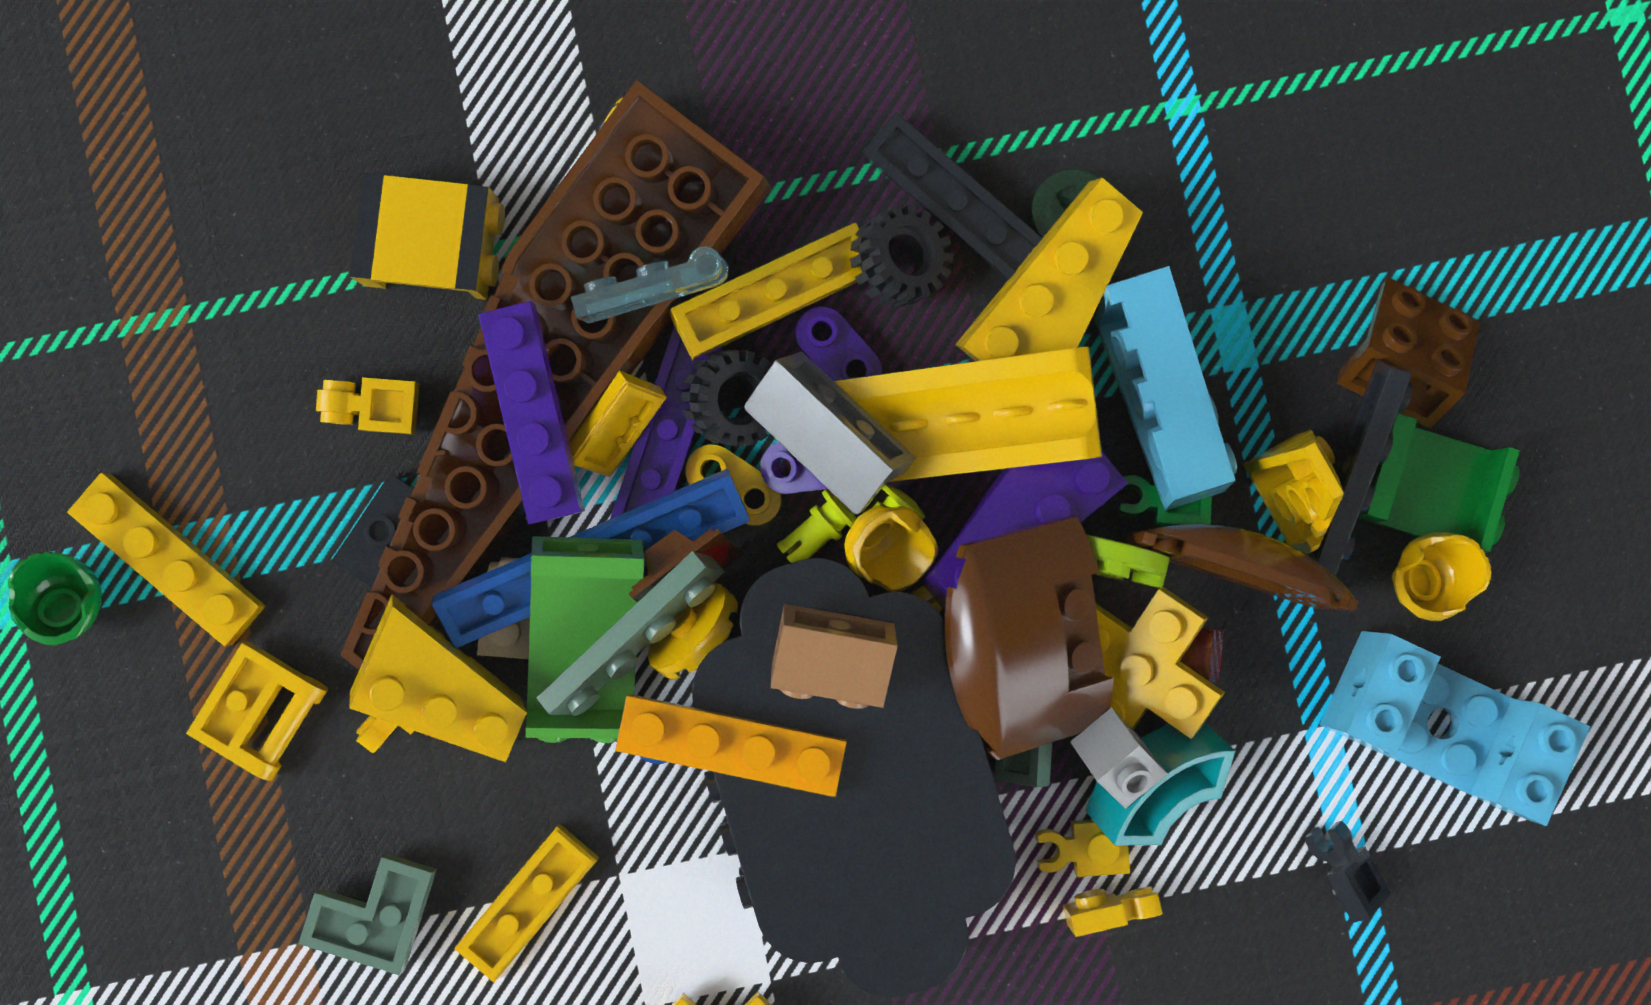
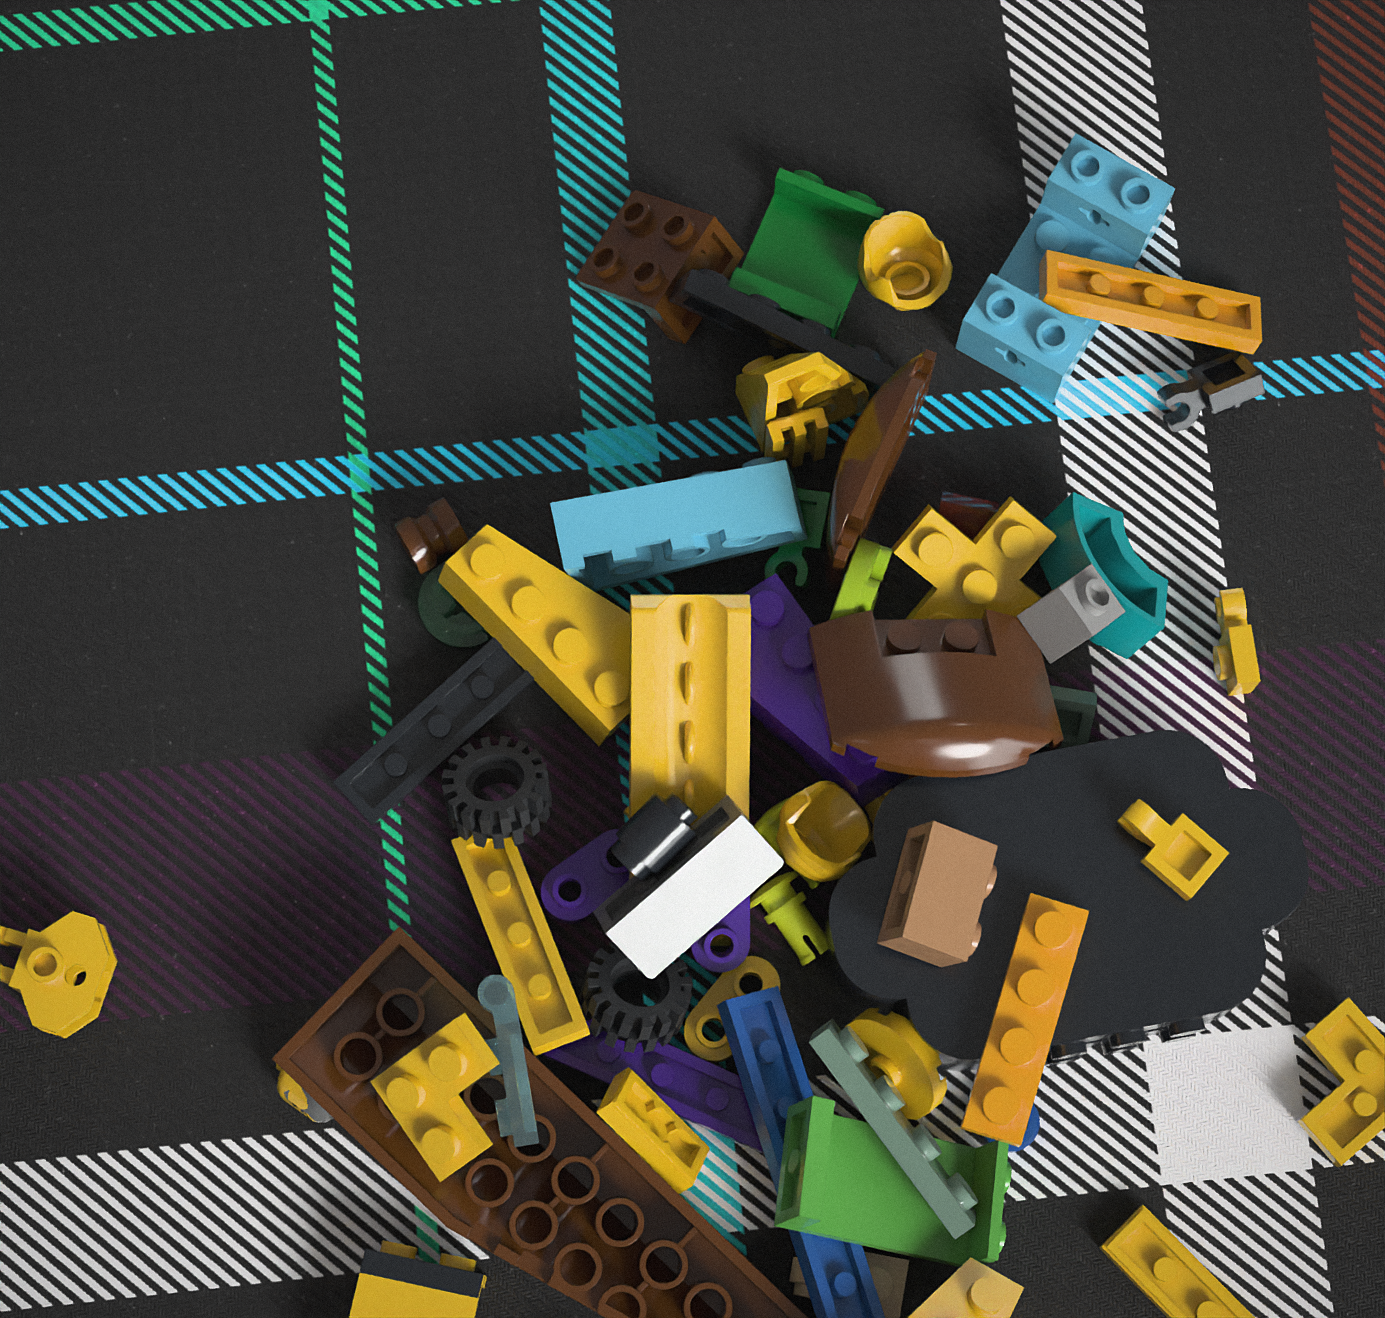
camera: 85 degrees left, 10 degrees down
(531, 412) = (633, 1217): dark purple plate -> none
(612, 216) = (425, 1097): none -> yellow plate
(673, 548) = (807, 1068): reddish brown piece -> none
(869, 395) = (654, 835): none -> black brick
(898, 876) = (1178, 853): none -> yellow plate
(1087, 848) = (1168, 659): yellow plate -> none
(1131, 171) = (431, 535): none -> reddish brown wheel
(1252, 492) = (799, 444): none -> yellow tile
(1428, 808) = (1150, 302): none -> light orange plate

